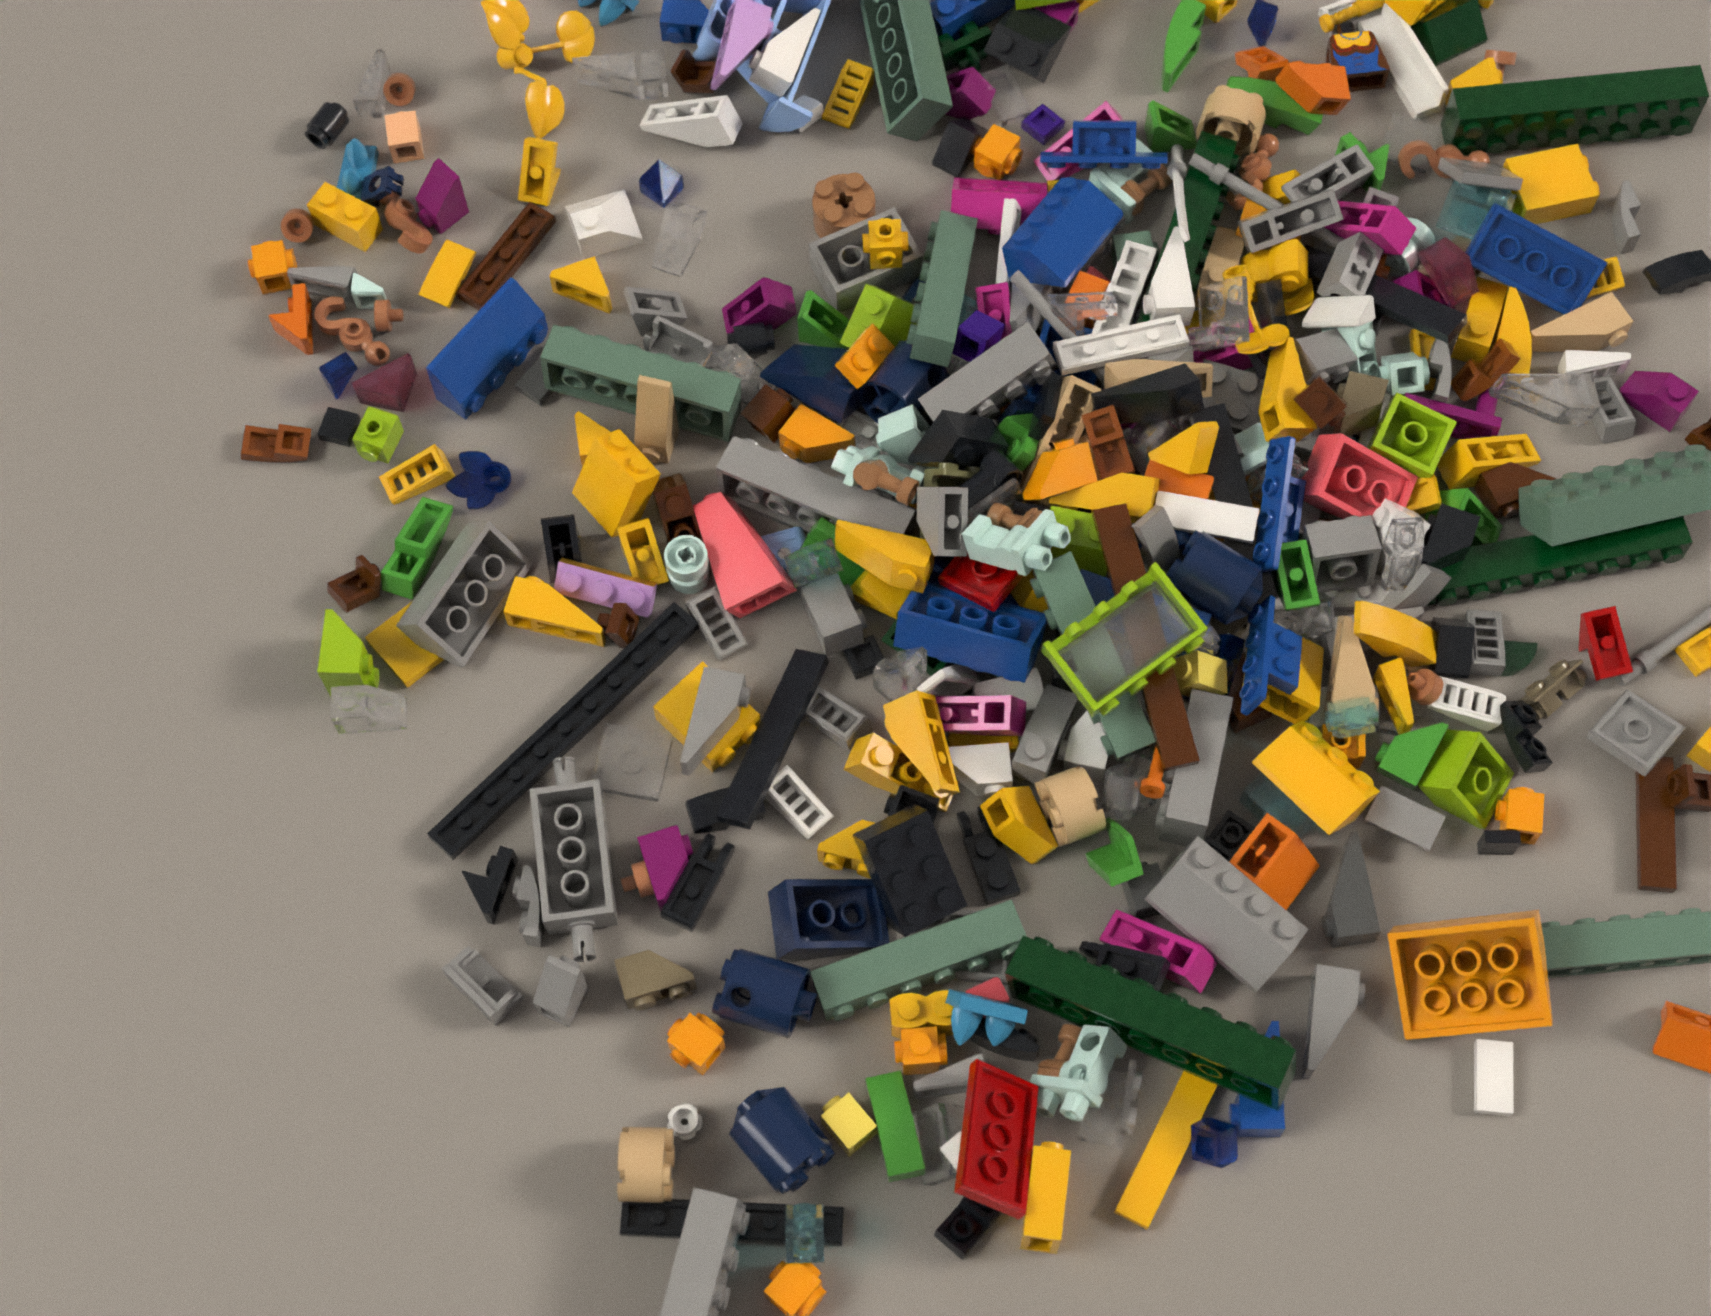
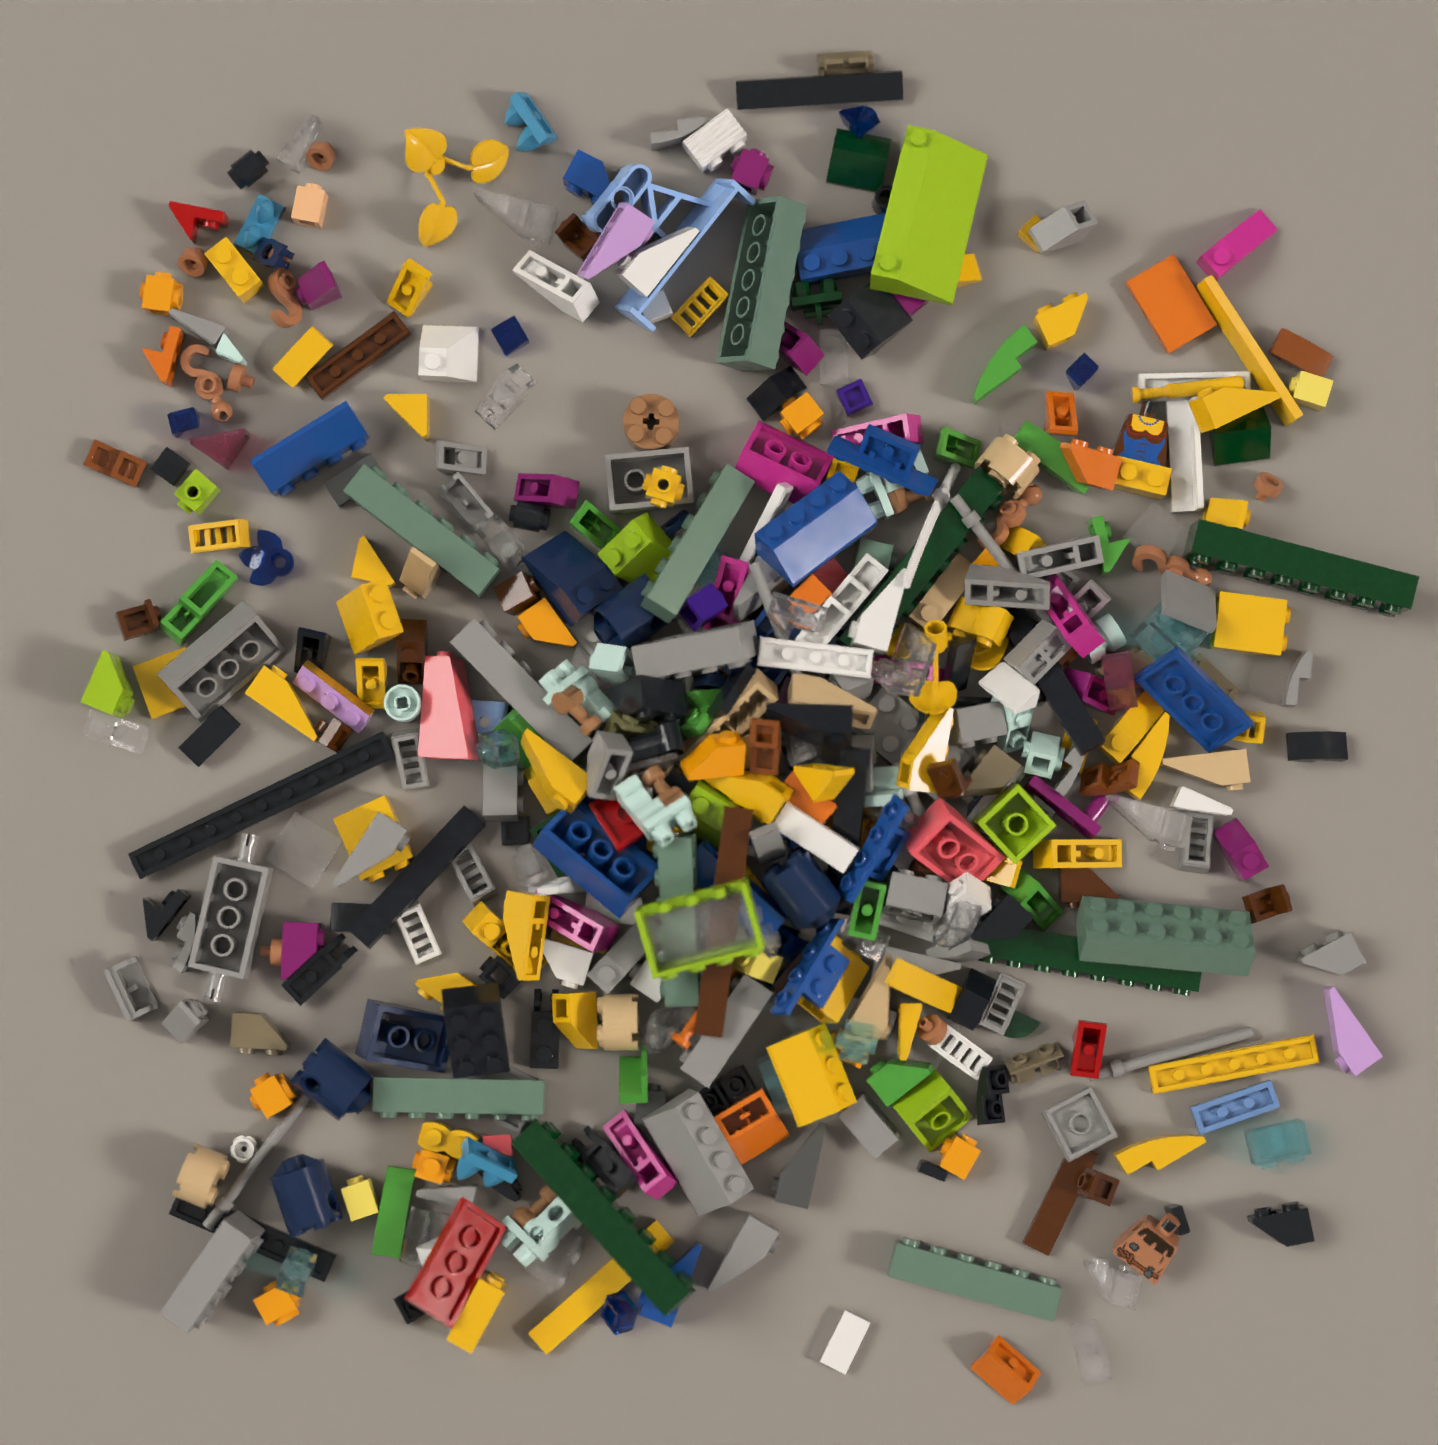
camera: 15 degrees right, 20 degrees up
(282, 183) = (190, 217): none -> red slope
(478, 676) = (209, 735): none -> black slope
(684, 1187) = (225, 1203): none -> light grey bar
(864, 356) = (607, 584): light orange plate -> none
(1373, 92) = (1143, 478): none -> yellow brick
(1471, 975) = (858, 1267): light orange slope -> none

